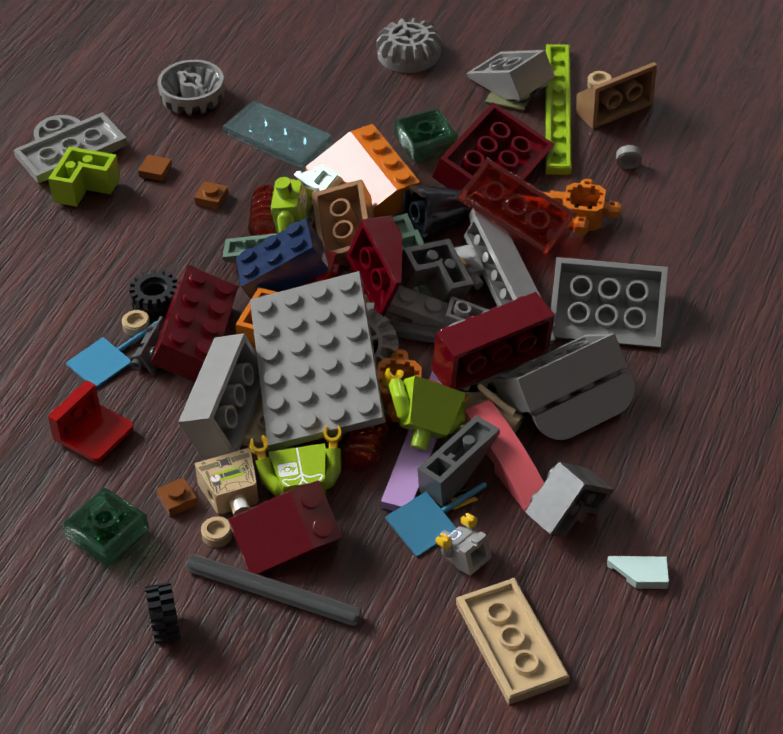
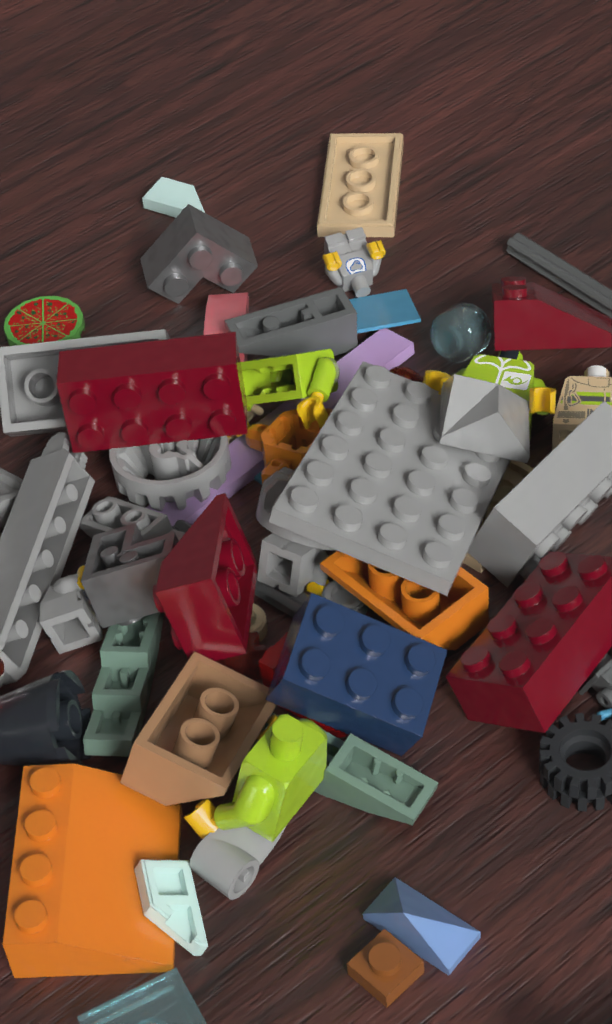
camera: 150 degrees left, 0 degrees up
(205, 211) = (422, 925): none -> medium blue slope
(260, 216) = (314, 843): clear red piece -> none
(284, 409) = (484, 418): none -> light grey slope
(351, 512) = (461, 332): none -> clear light blue head
(643, 435) = (44, 321): none -> tile

